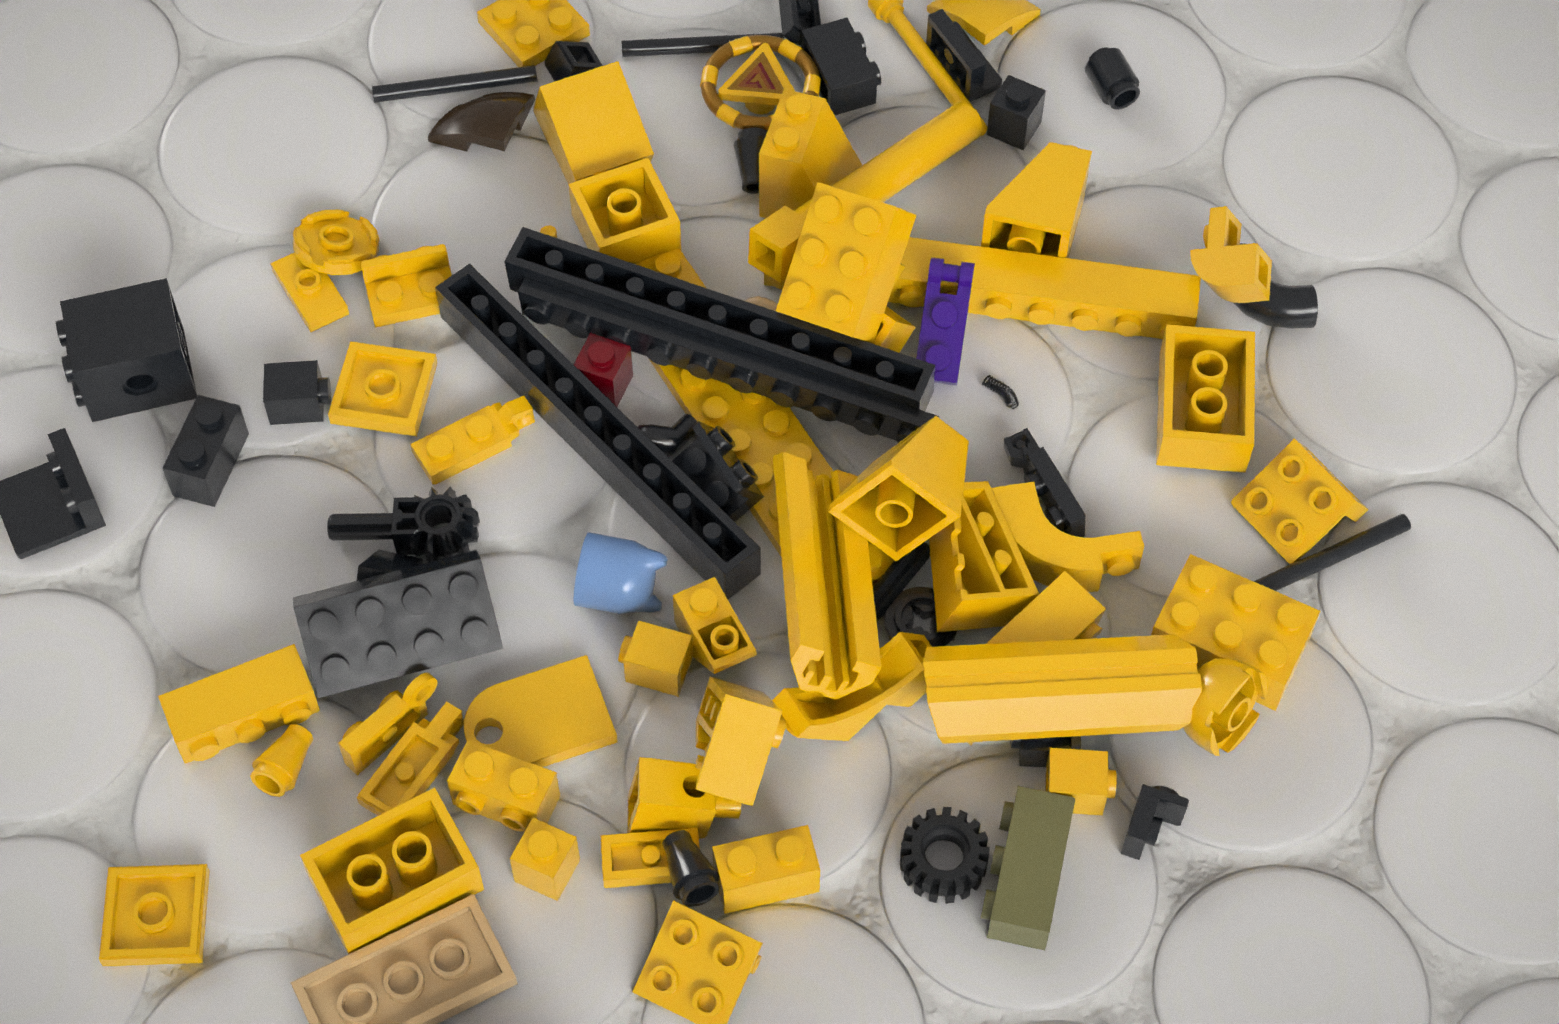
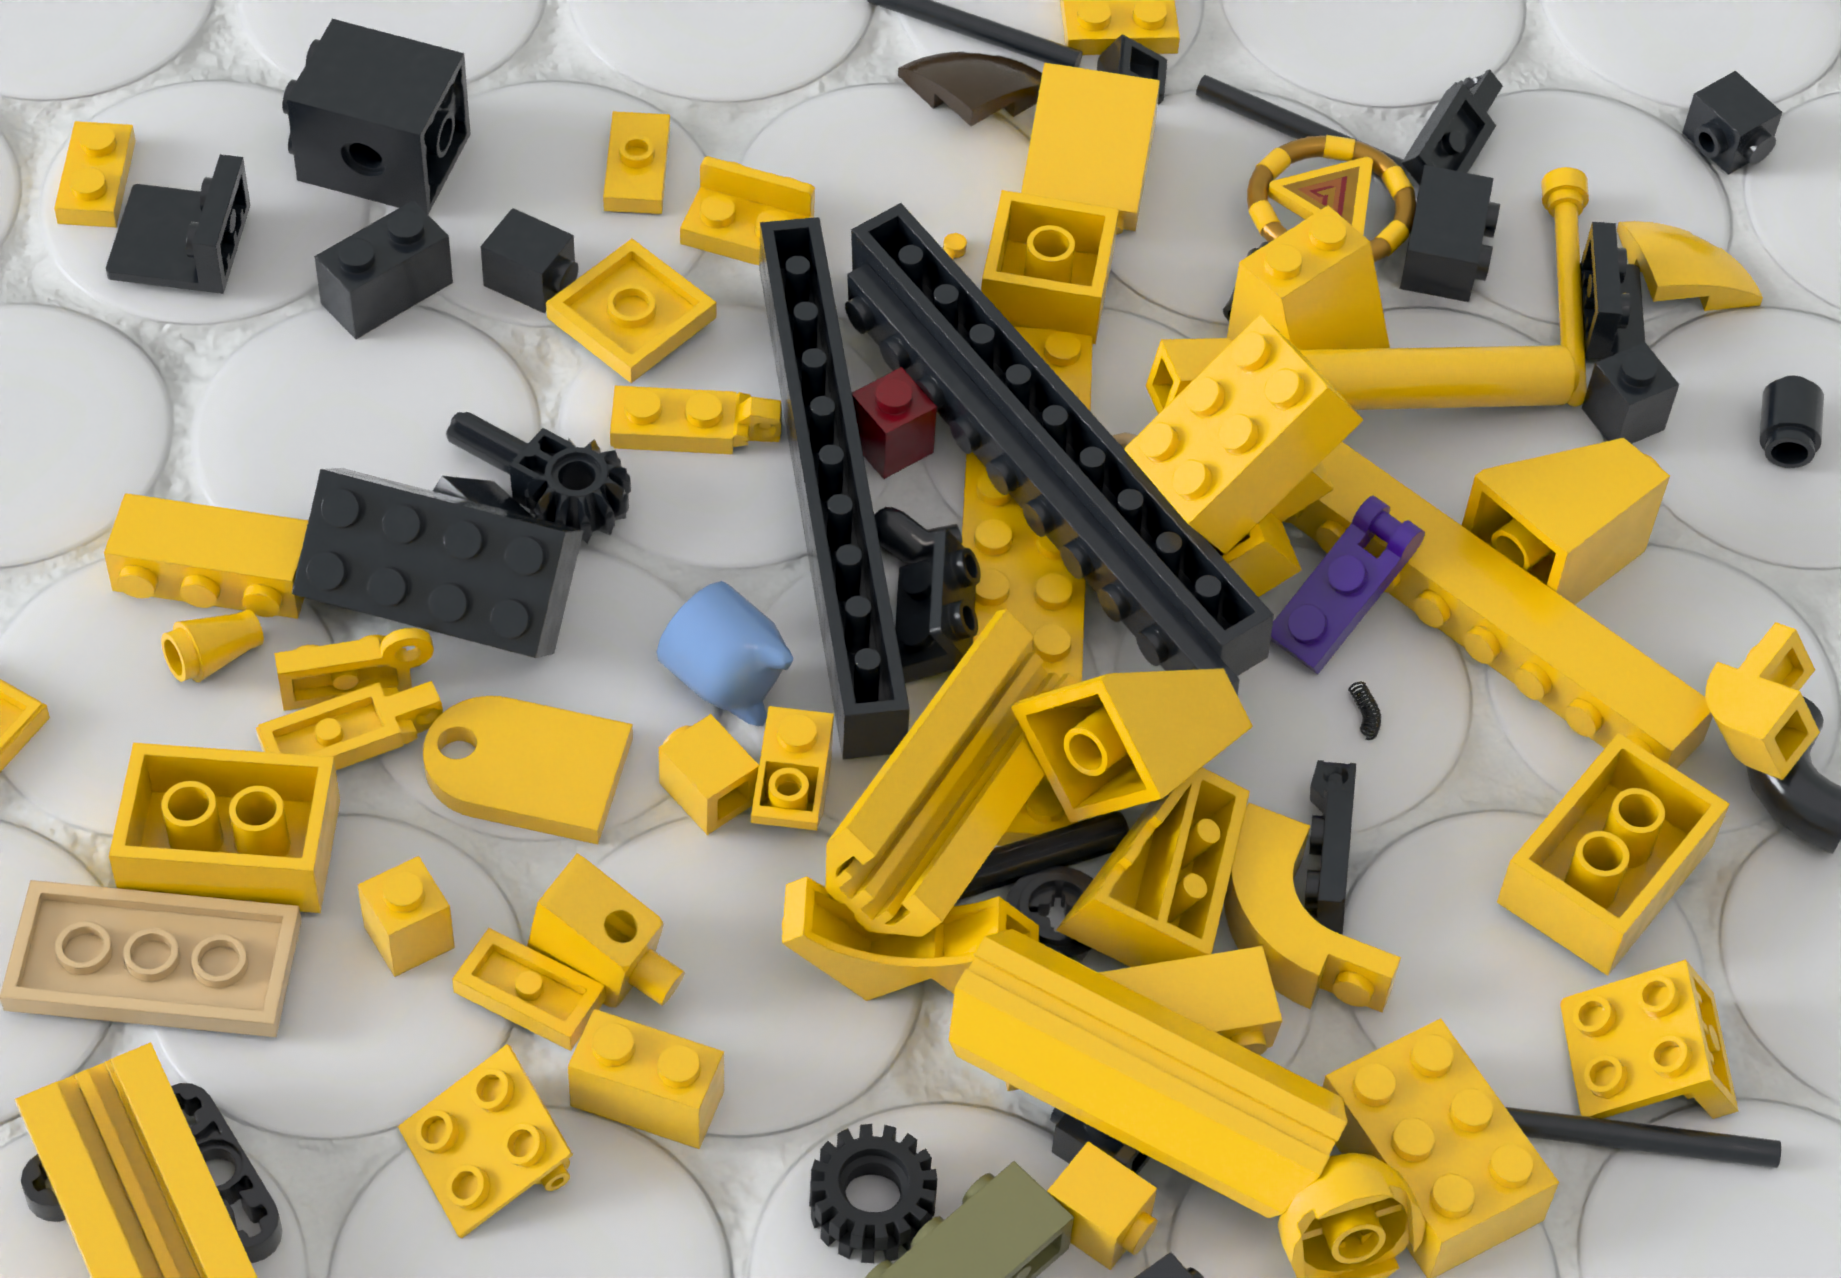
camera: 30 degrees right, 5 degrees down
(335, 242) = (700, 122): yellow tile -> none
(502, 787) = (420, 810): yellow brick -> none
(690, 872) = (551, 1022): black cone -> none
(737, 733) = (703, 899): yellow wedge -> none

